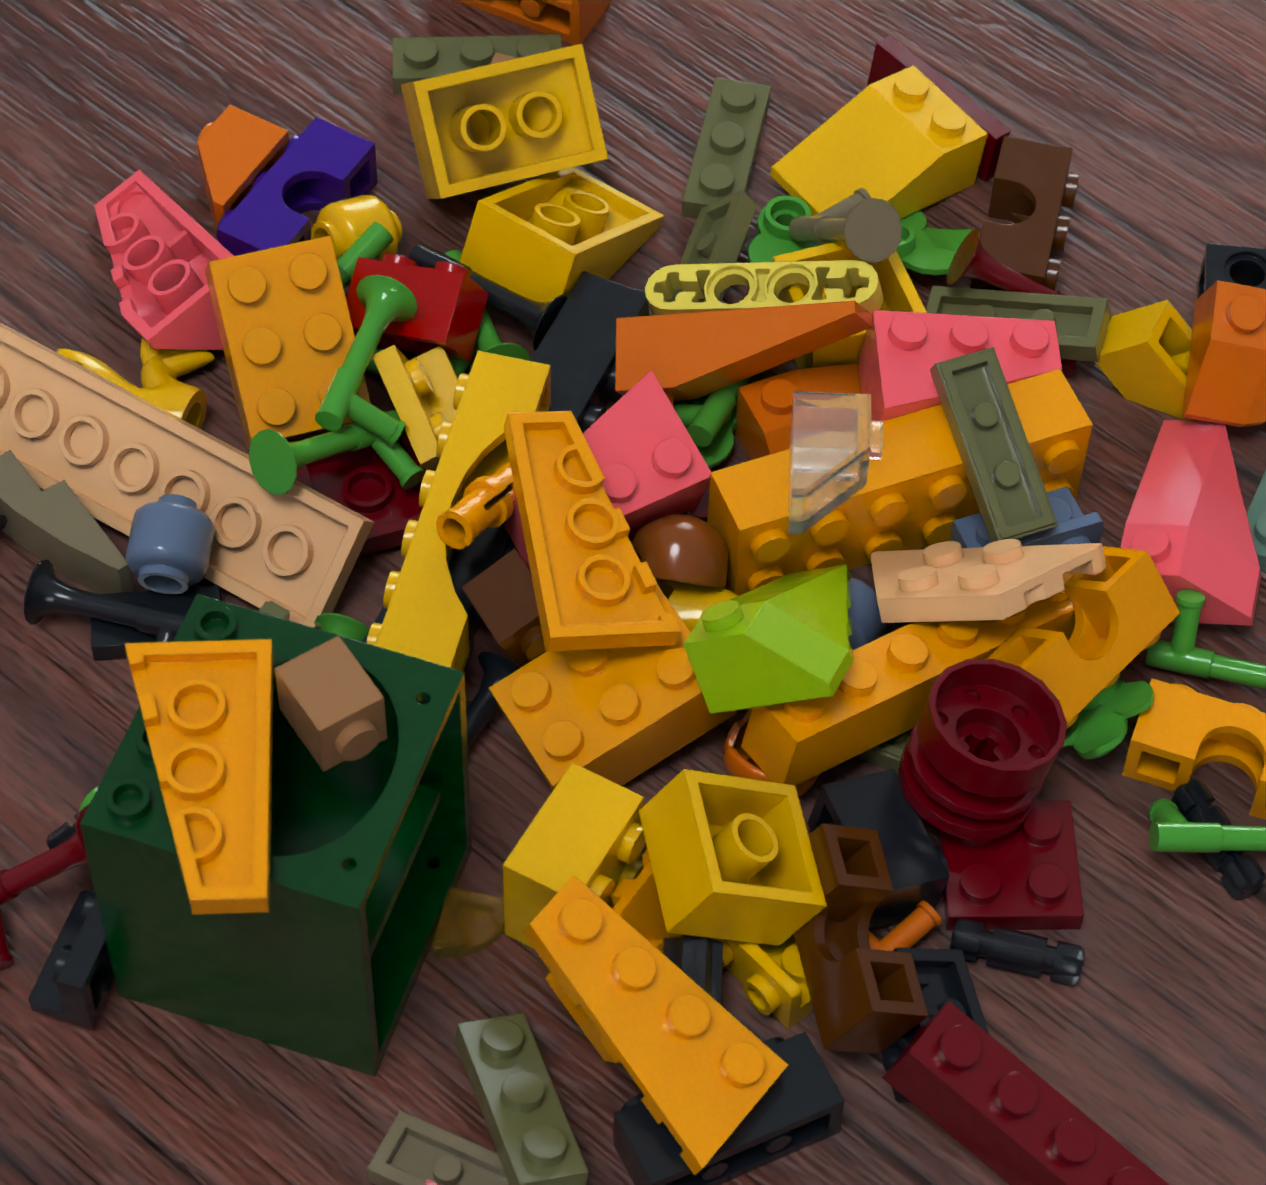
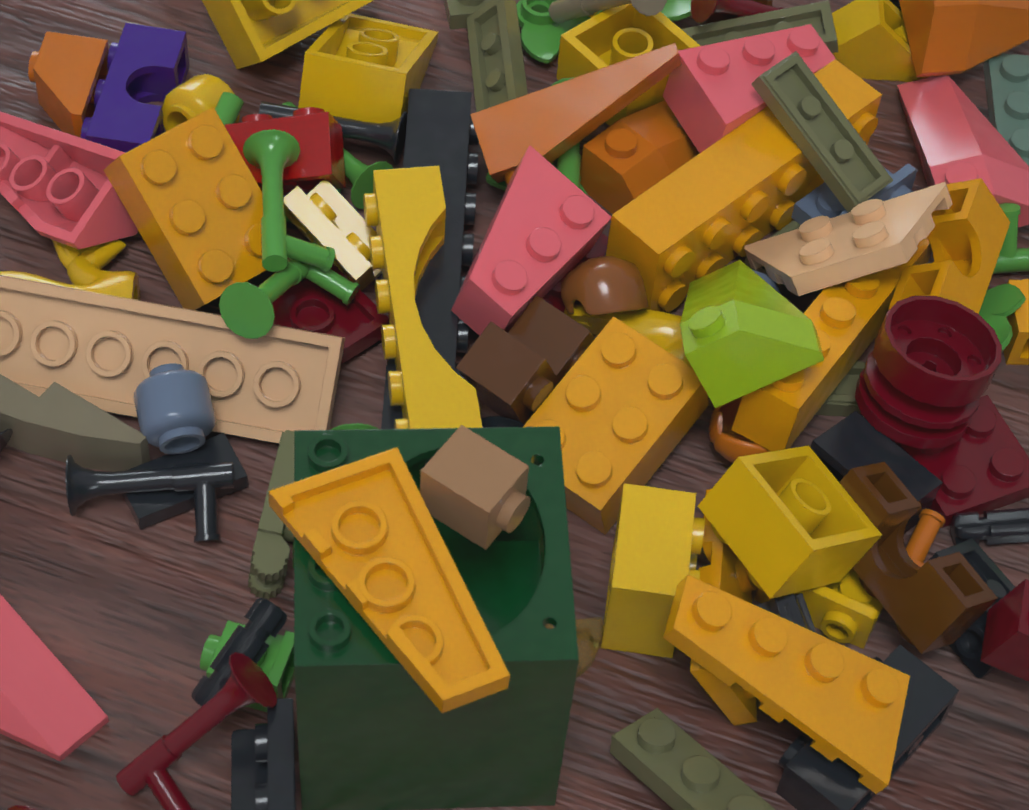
camera: 25 degrees left, 0 degrees up
(472, 515) = (446, 286): light orange pin -> none
(577, 545) = (545, 300): light orange wing -> none
(765, 284) = (567, 56): light yellow beam -> none
(828, 453) = (702, 170): clear slope -> none

